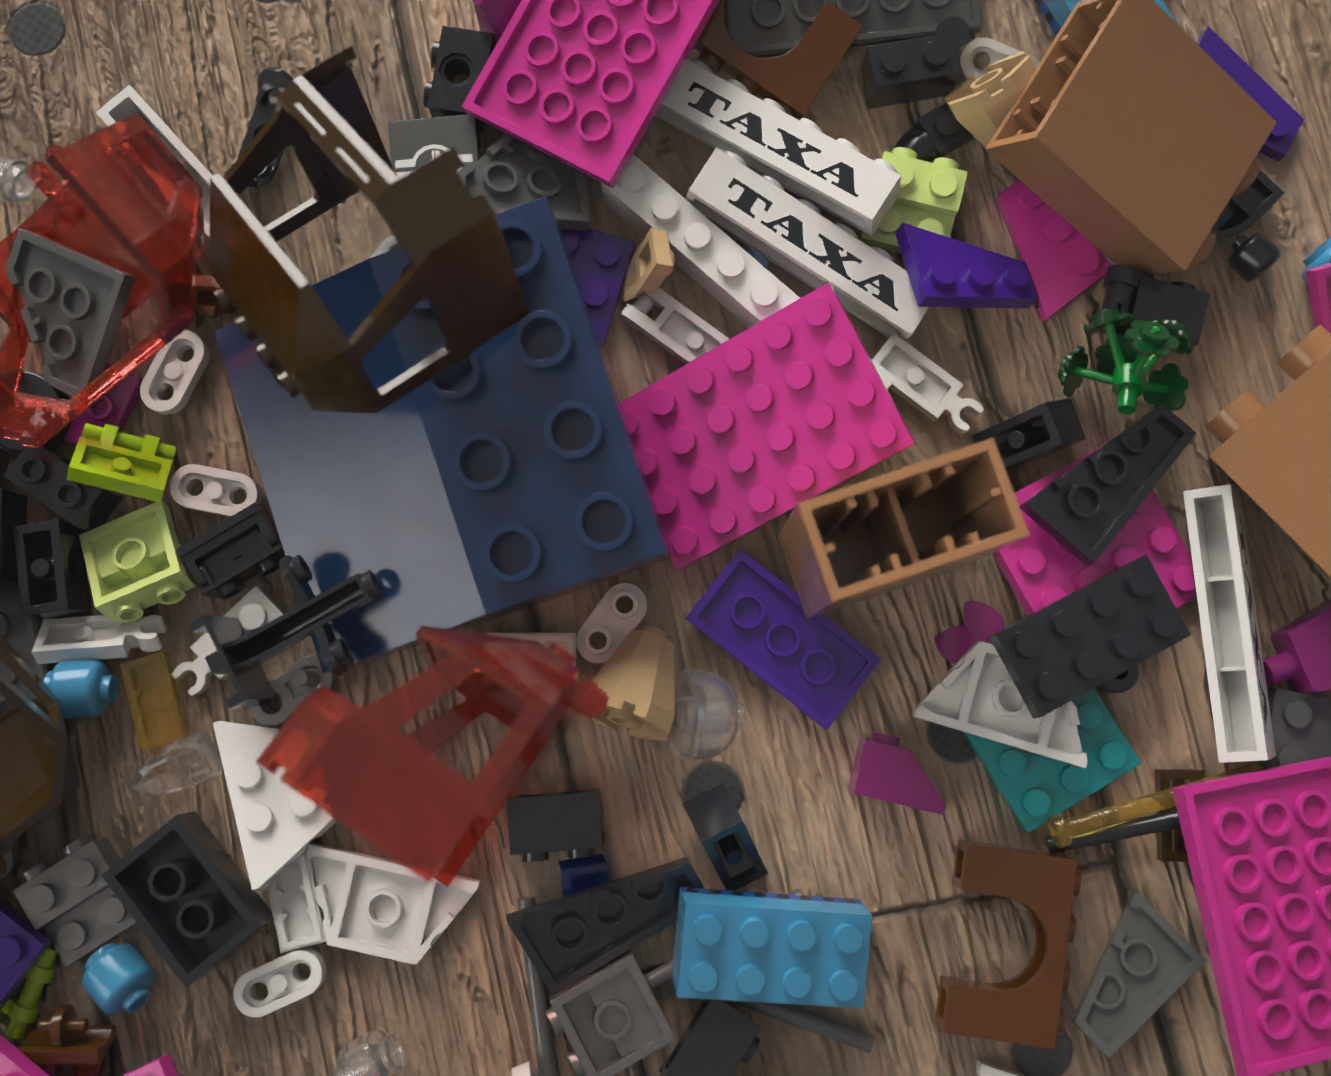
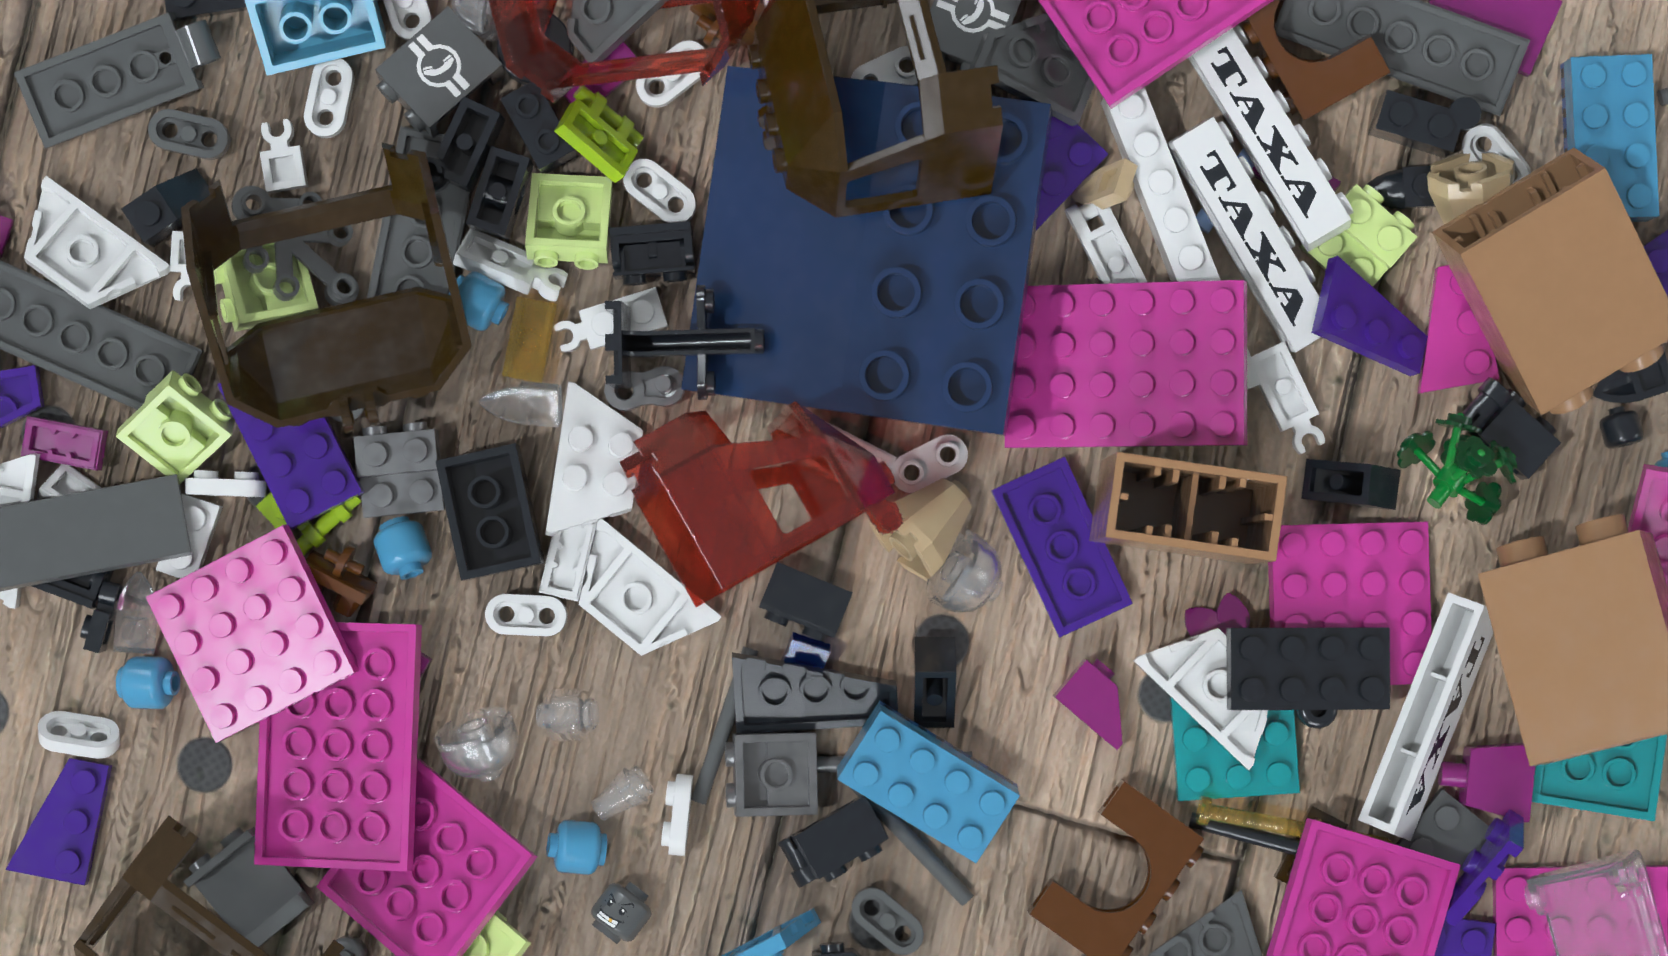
camera: 30 degrees right, 5 degrees up
(1104, 490) = (1382, 558): black wing -> none

